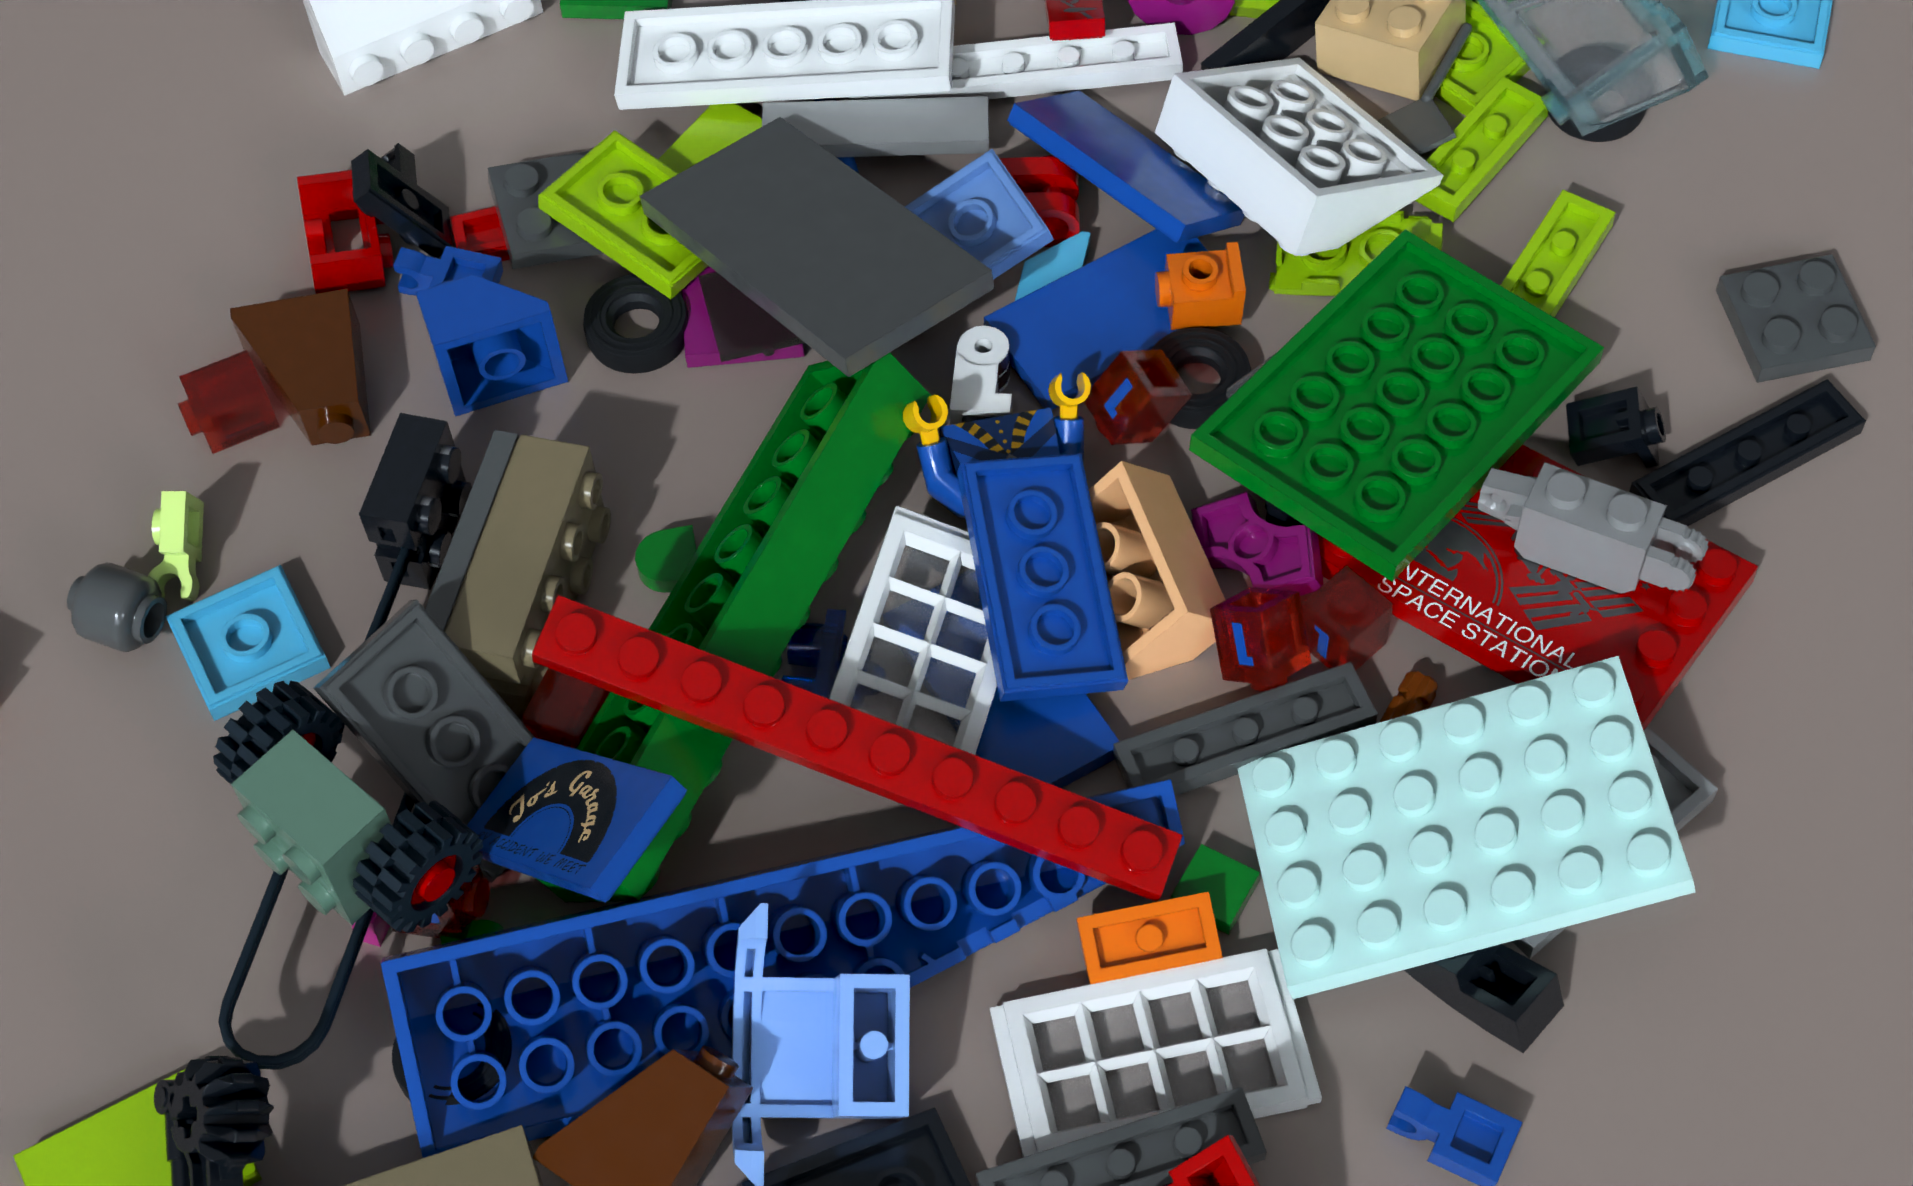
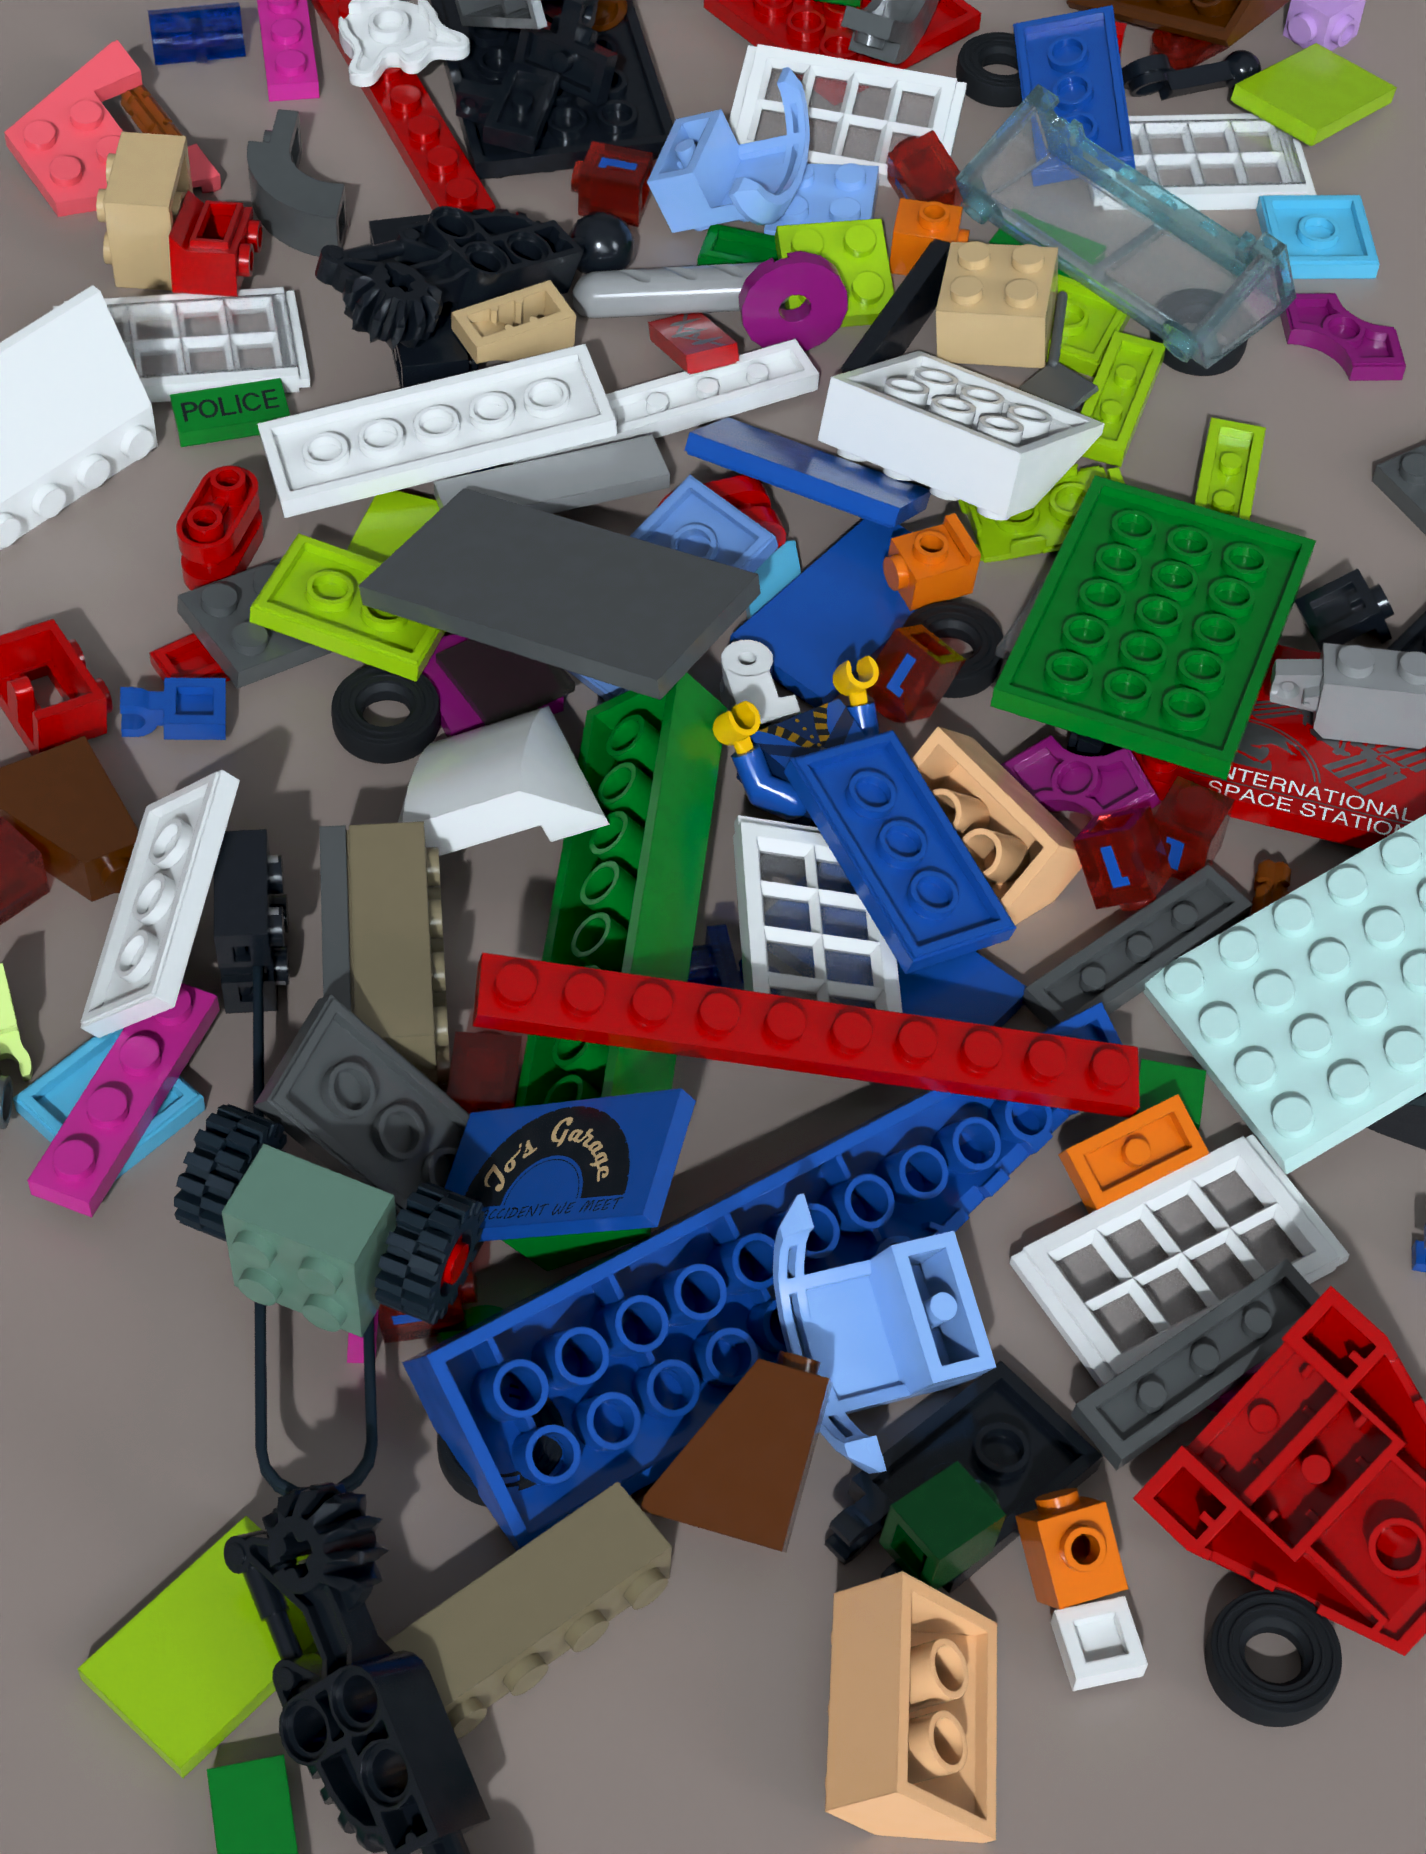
camera: 25 degrees left, 5 degrees down
(254, 639) = (121, 1103): none -> dark pink plate
(336, 468) = (160, 905): none -> white tile
(390, 193) = (92, 635): black hinge -> none
(490, 342) = (268, 742): blue slope -> none
(554, 107) = (220, 526): none -> red brick
(664, 556) = (514, 924): green tile -> none
(689, 421) = (500, 784): none -> white wedge
(1762, 140) = (1359, 347): none -> magenta tile

